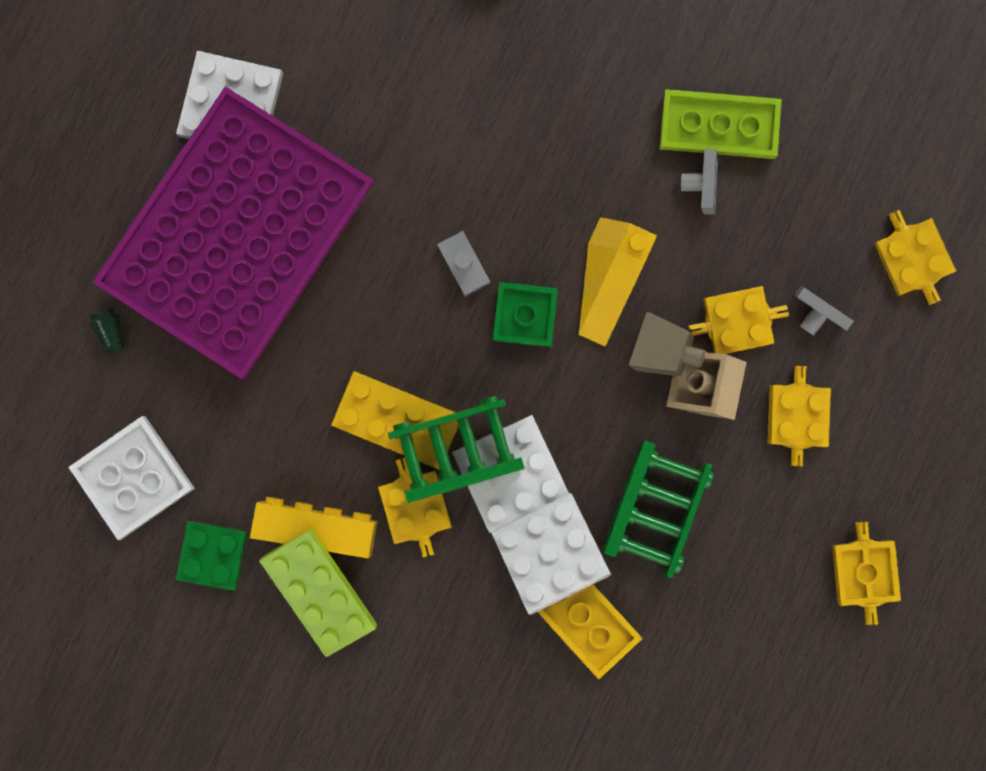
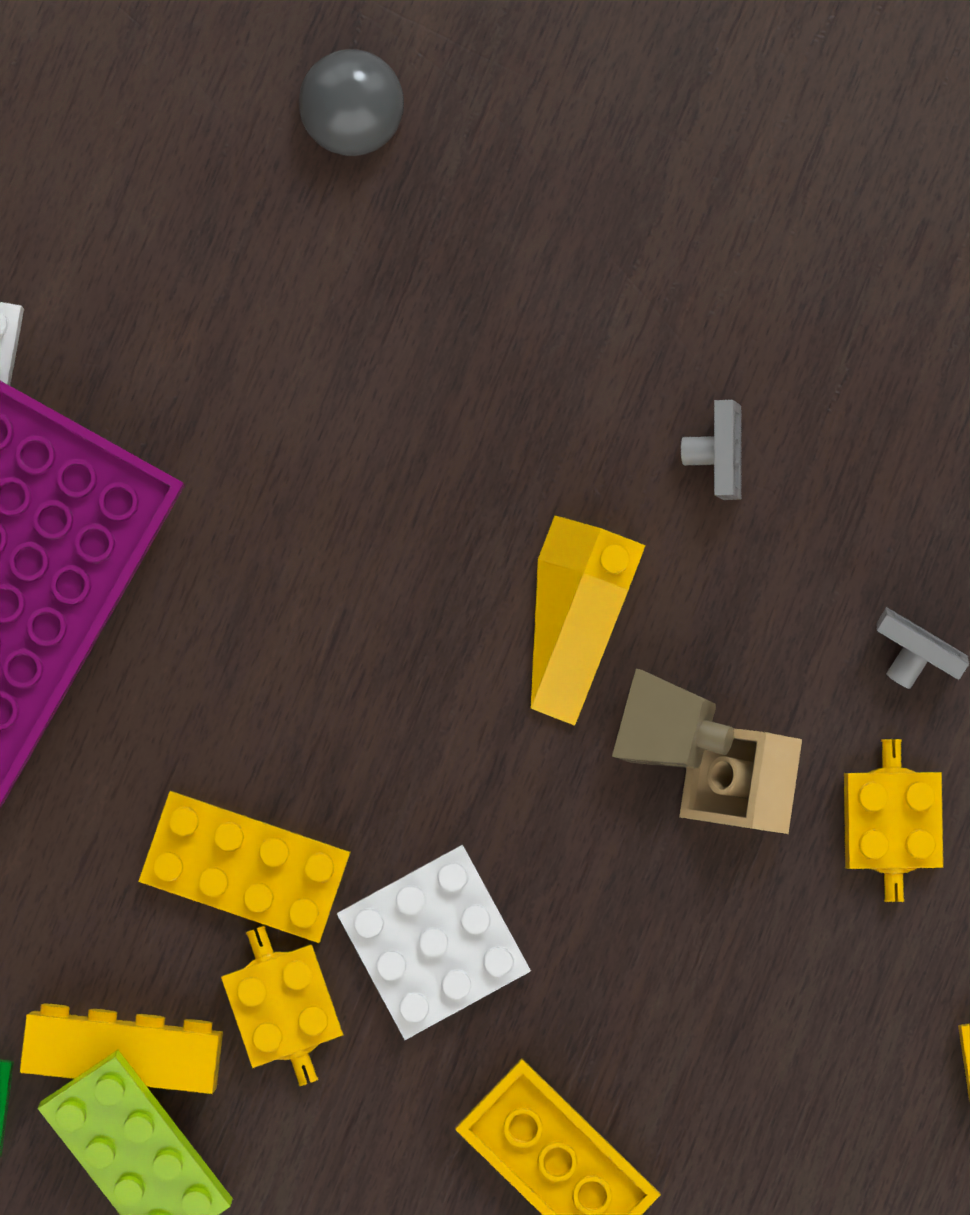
camera: 10 degrees left, 0 degrees up
(463, 263) = (337, 605): light grey tile -> none
(477, 470) = (334, 958): green fence -> none
(525, 314) = (441, 682): green plate -> none
(551, 554) = (505, 1068): white plate -> none
(637, 486) = (626, 995): green fence -> none
(720, 123) = (740, 353): lime plate -> none
(738, 320) = (787, 671): yellow plate -> none

